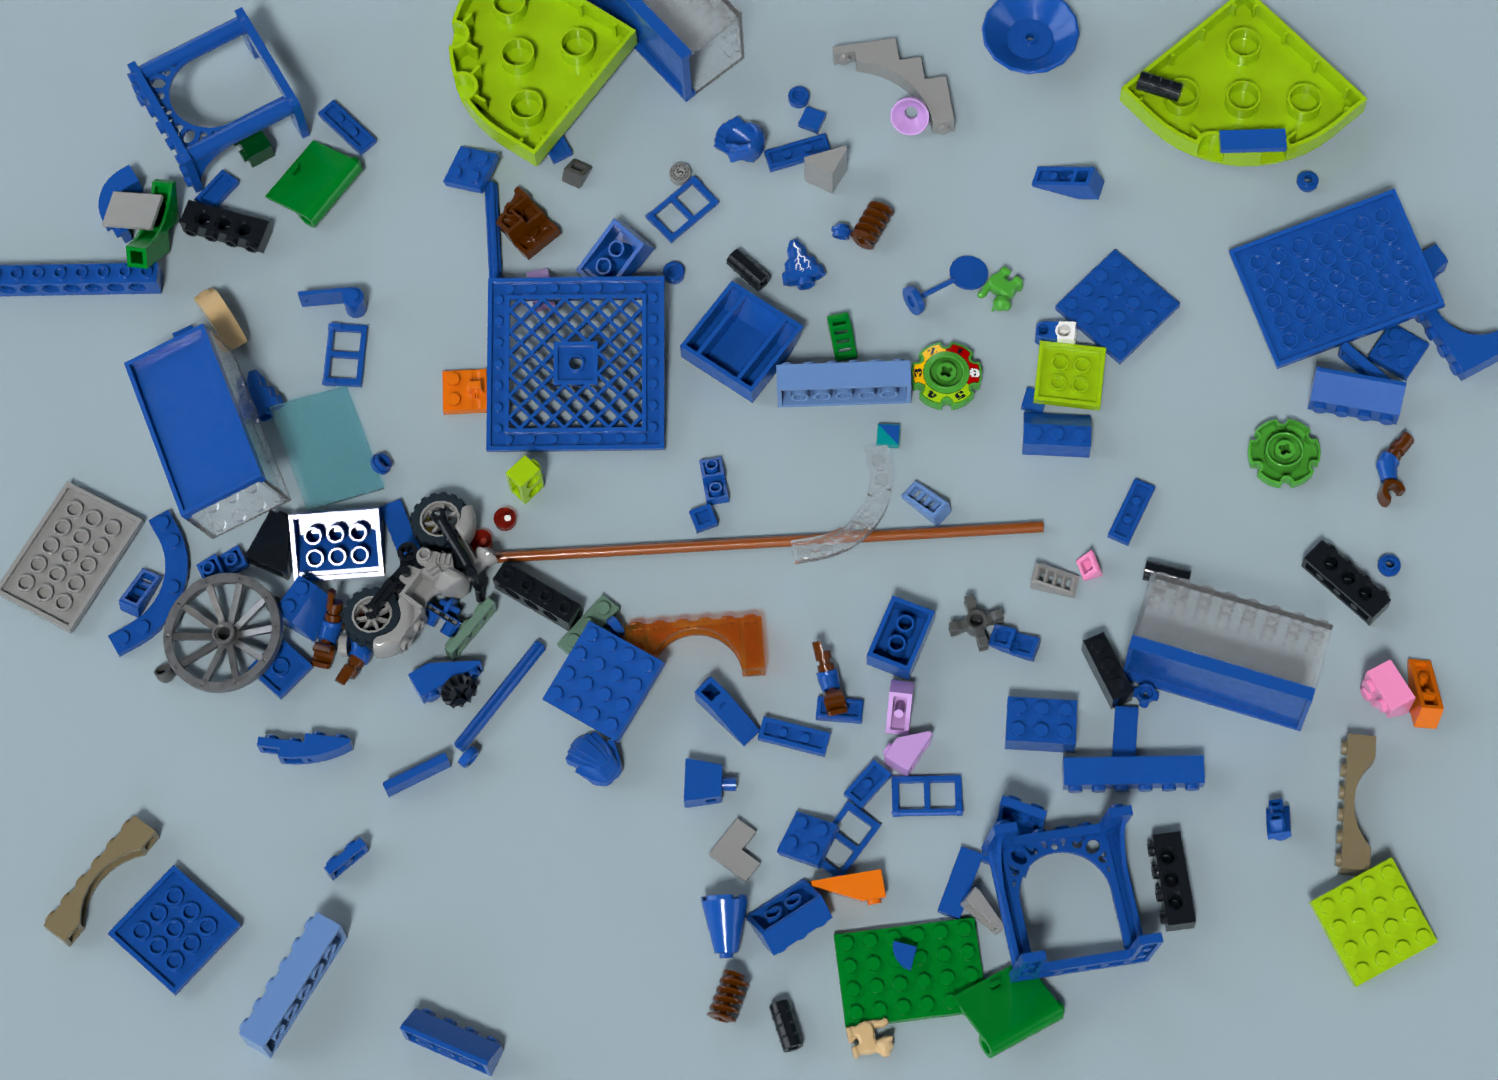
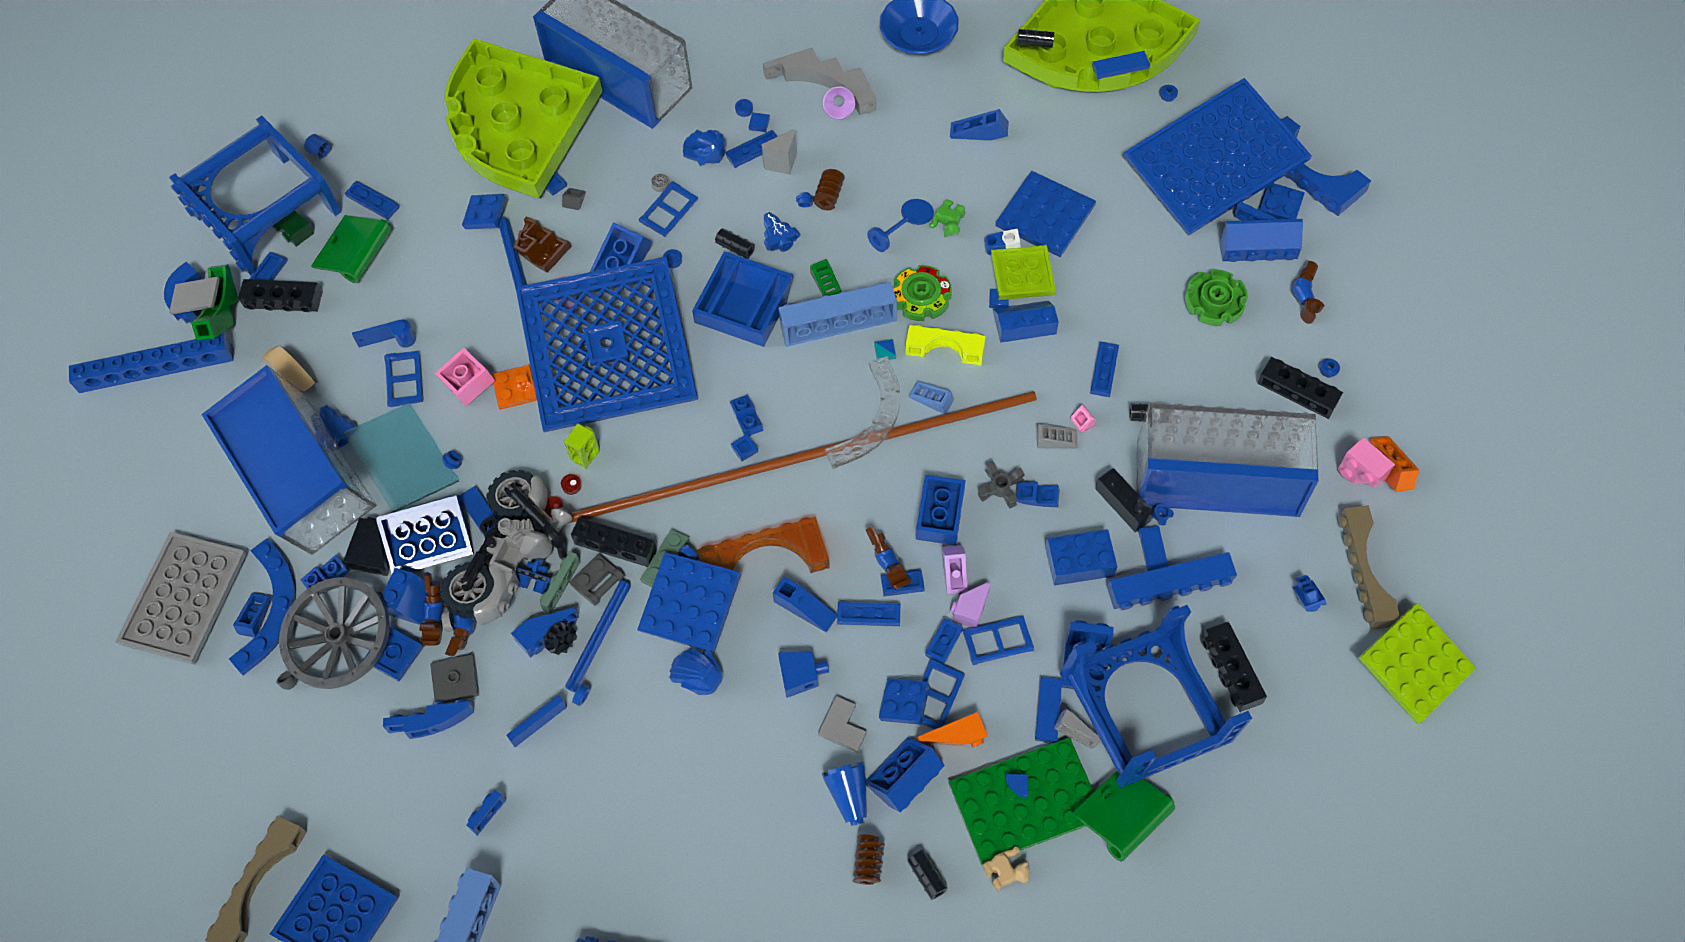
camera: 15 degrees left, 5 degrees down
(296, 47) = (317, 146): none -> blue piece
(339, 709) = (454, 679): none -> dark grey plate
(412, 370) = (465, 376): none -> bright pink slope
(507, 628) = (592, 575): none -> dark grey plate
(932, 433) = (923, 339): none -> neon yellow arch

